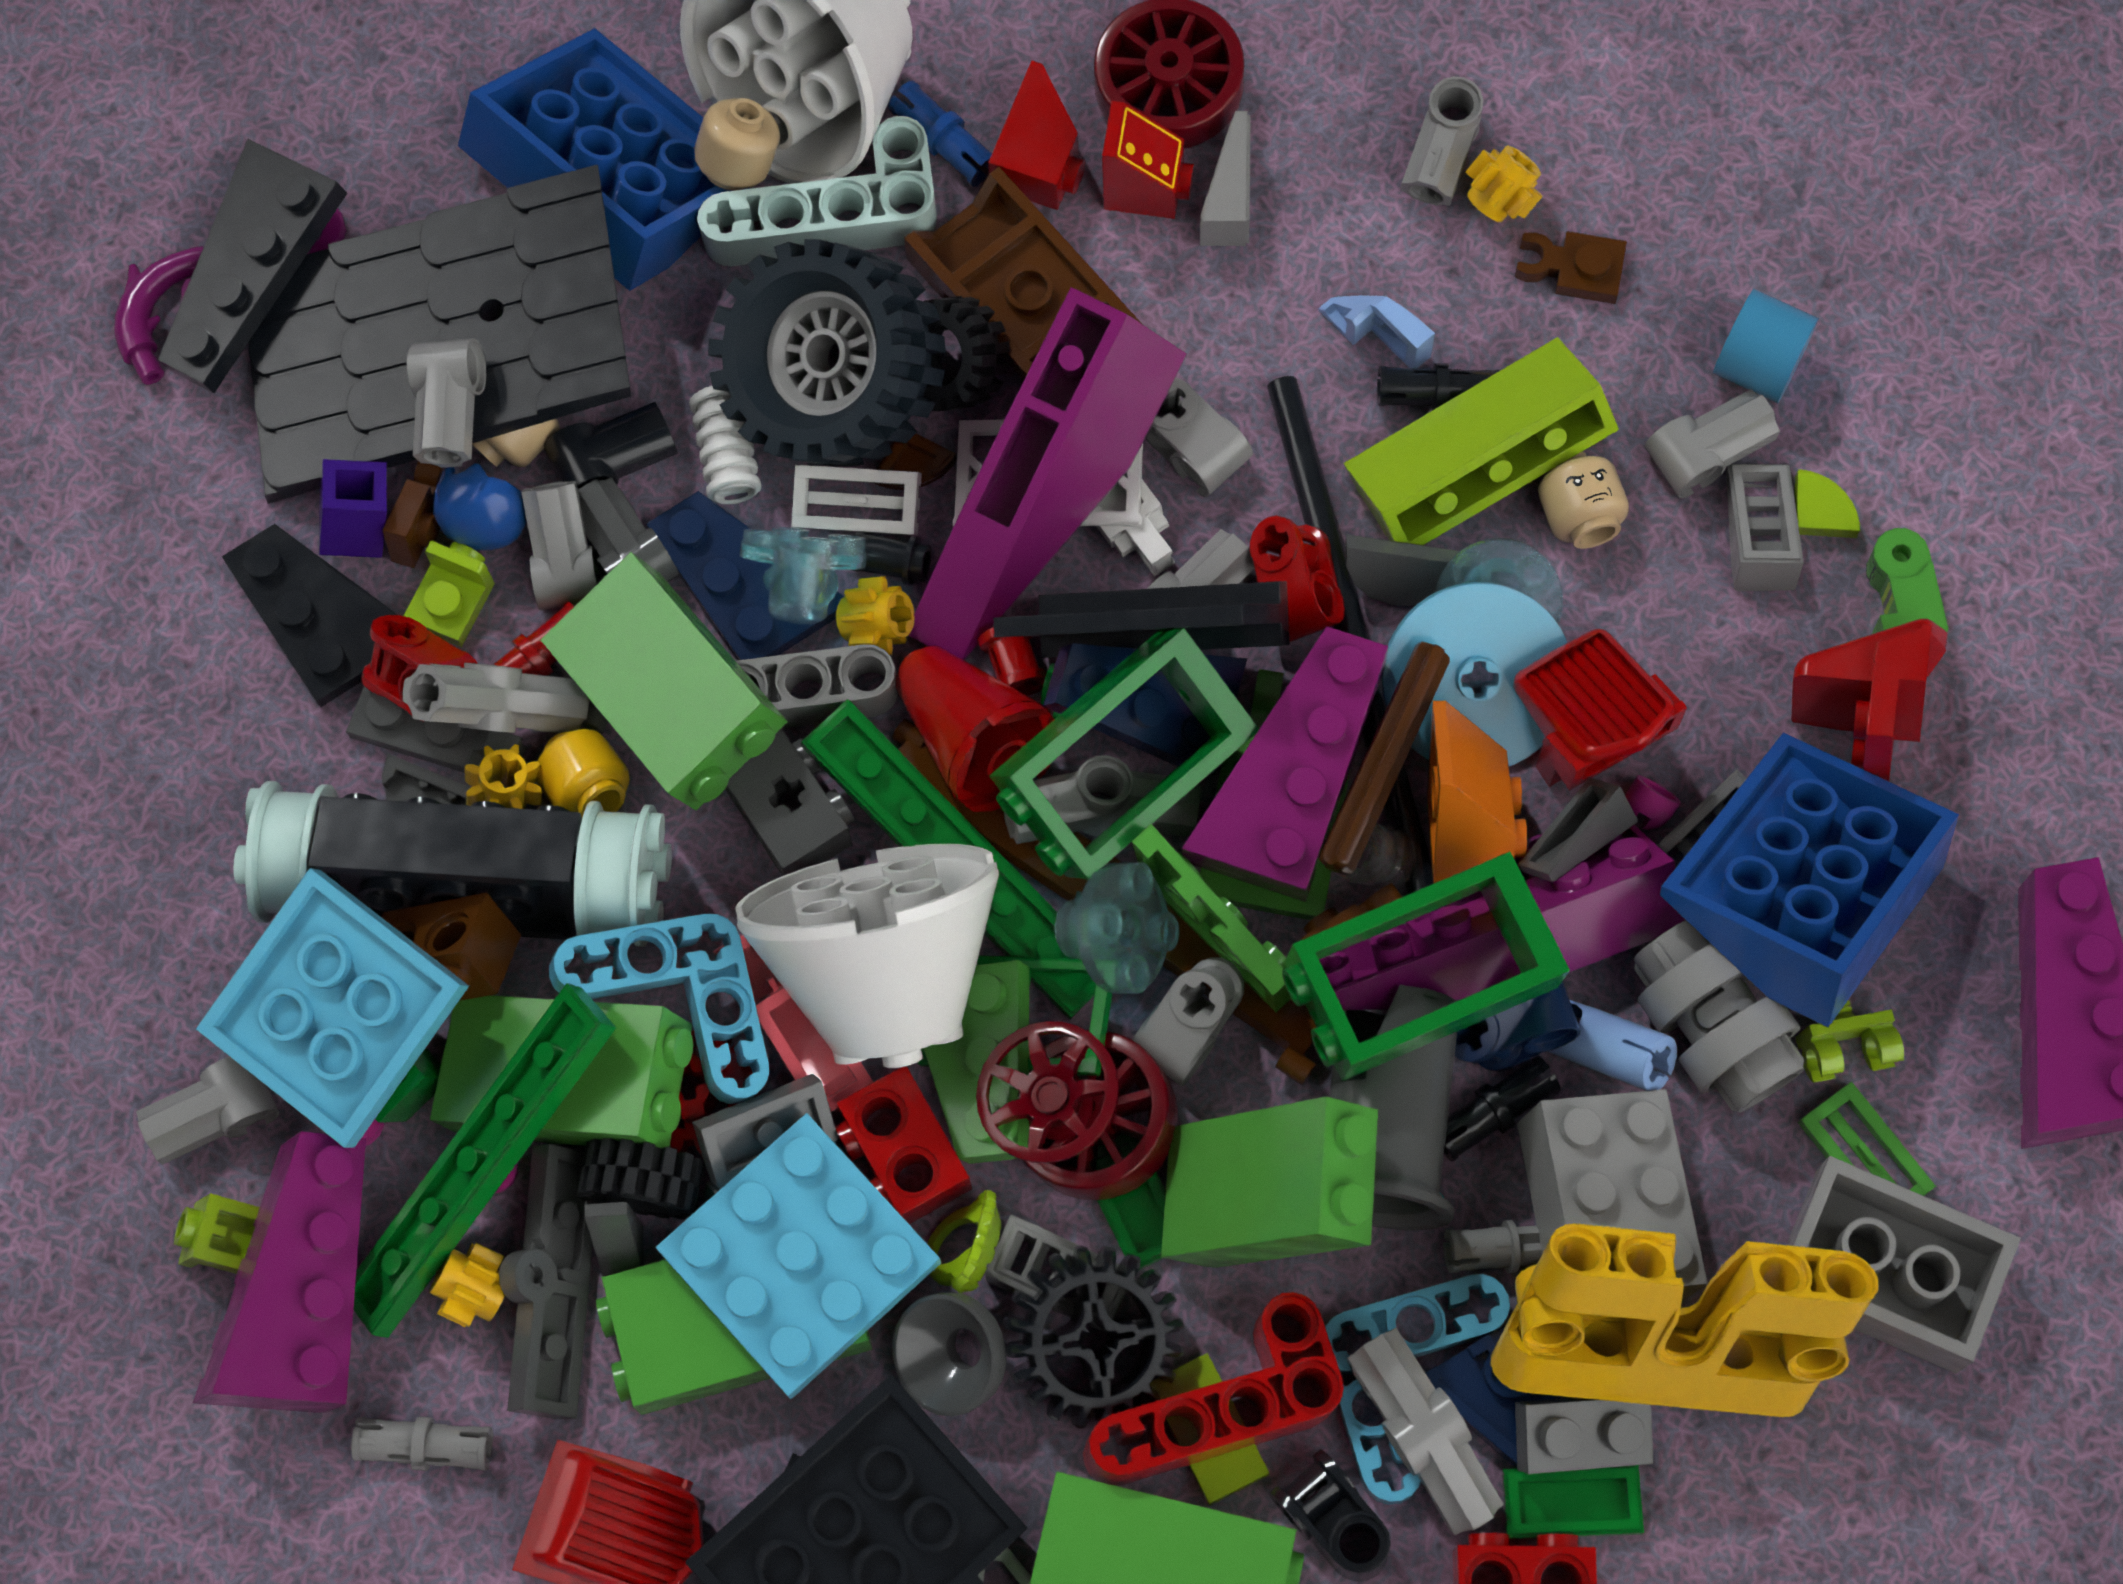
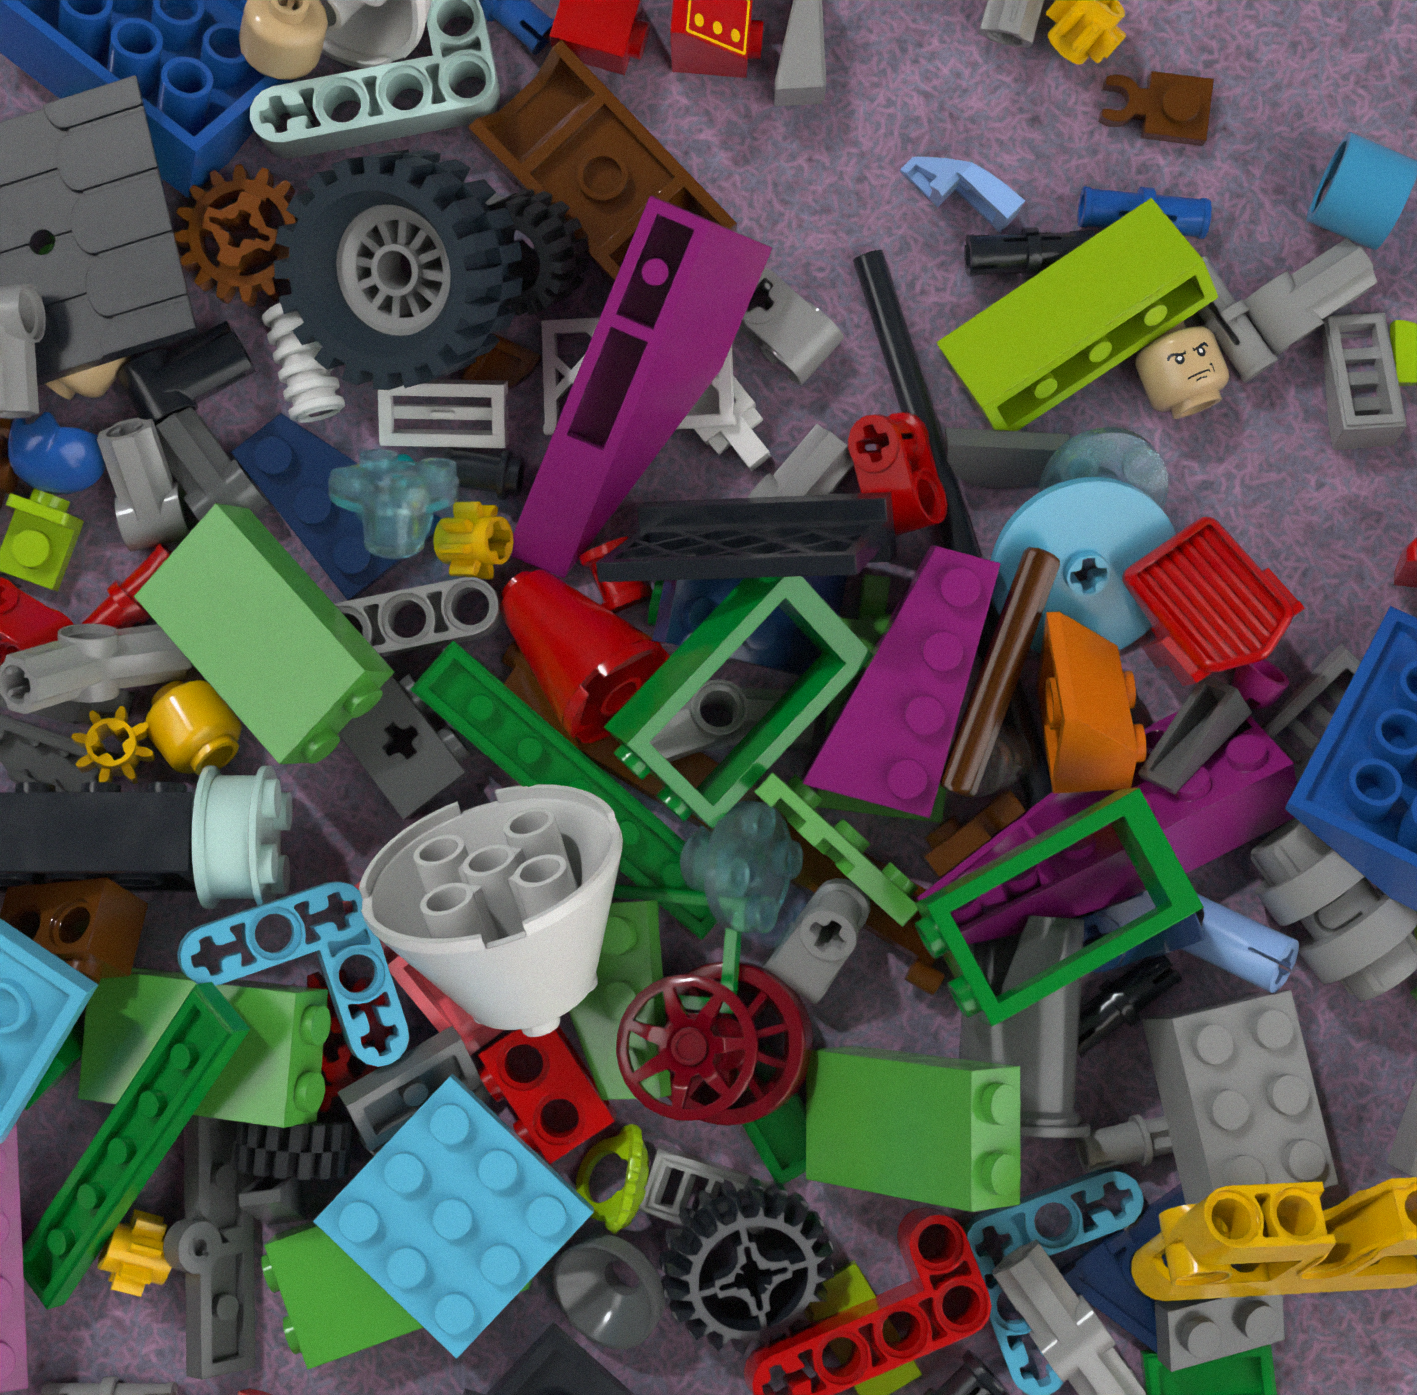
camera: 10 degrees left, 15 degrees up
(667, 305) = (236, 261): none -> dark orange gear
(1511, 347) = (1104, 207): none -> blue pin
(1651, 488) = (1235, 331): none -> light grey pin

